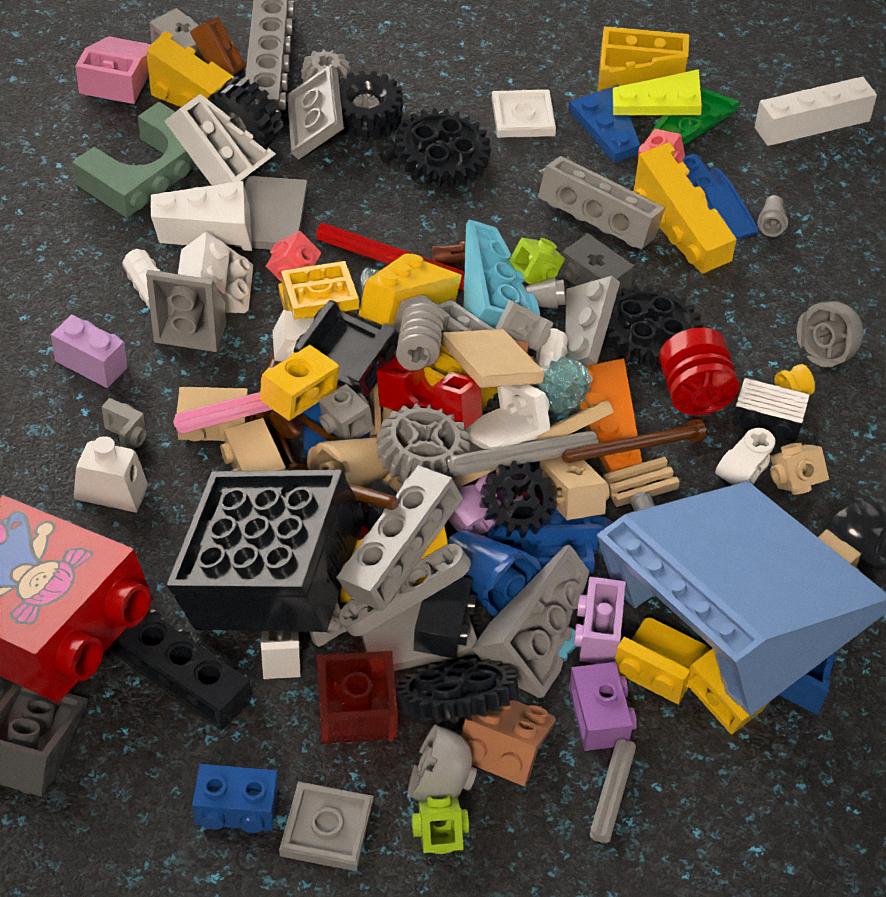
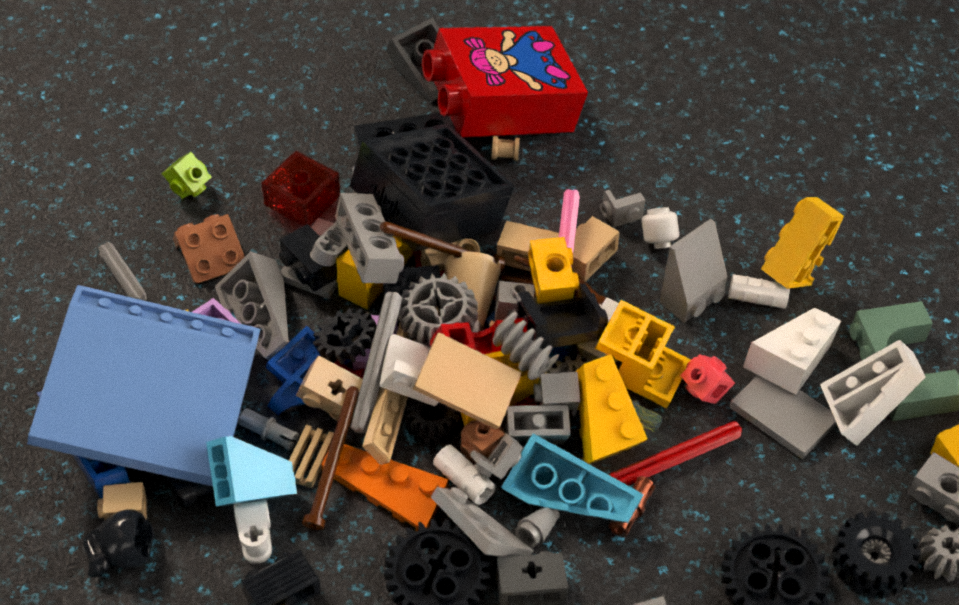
camera: 130 degrees right, 0 degrees up
(89, 350) = (720, 210): lavender brick -> none
(92, 235) = (802, 243): none -> yellow wedge
(110, 476) = (579, 170): white torso -> none
(131, 376) = (660, 227): none -> white head
(214, 260) = (727, 328): white slope -> none
(235, 798) = (301, 115): blue brick -> none
(249, 109) = (900, 429): black bush -> none
(314, 111) = (886, 500): light grey tile -> none
(326, 826) = (247, 148): light grey tile -> none
(442, 767) = (214, 193): light grey cylinder -> none
(457, 690) = (230, 212): black gear -> none
(496, 569) = (314, 300): blue cone -> none
(536, 260) = (565, 523): lime brick -> none
(565, 385) = (421, 445): clear light blue gear -> none
(601, 705) = (172, 291): medium lavender brick -> none
(698, 371) = (351, 546): red wheel -> none
(723, 465) = (247, 472): none -> slope
(798, 467) = (210, 549): tan brick -> none

